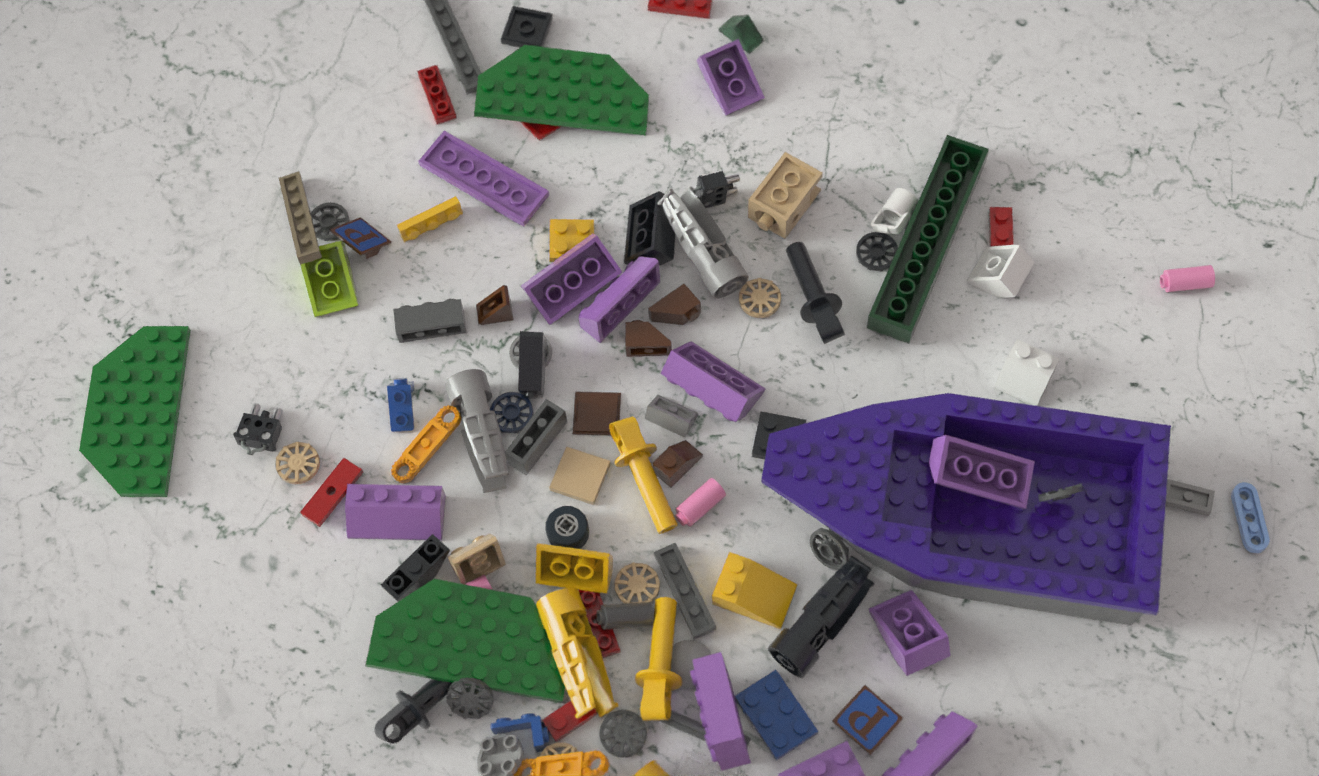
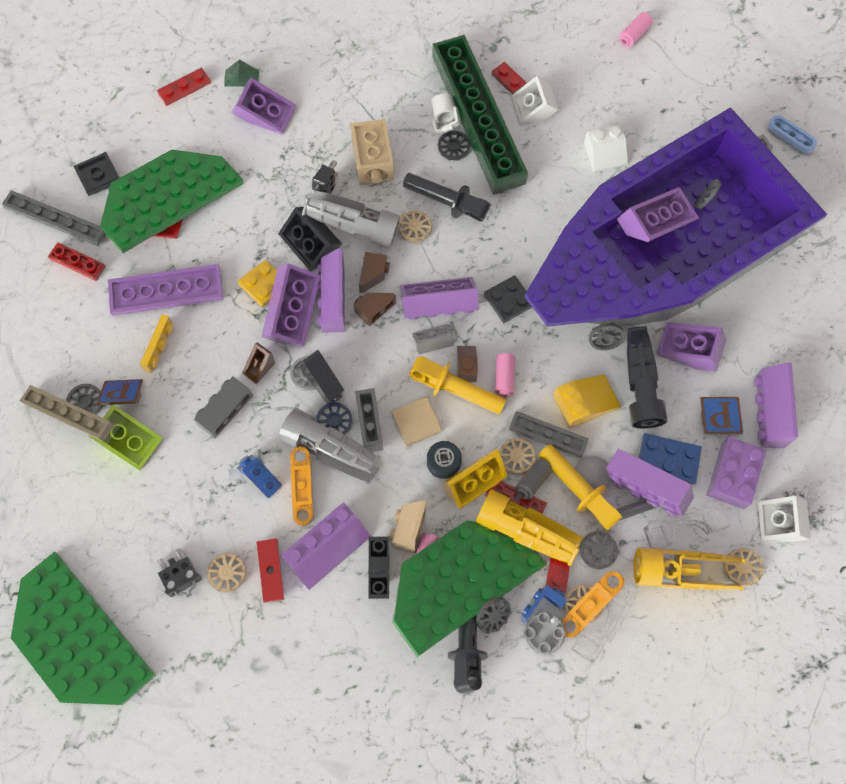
camera: 50 degrees left, 5 degrees up
(595, 412) = (386, 375): reddish brown piece -> none

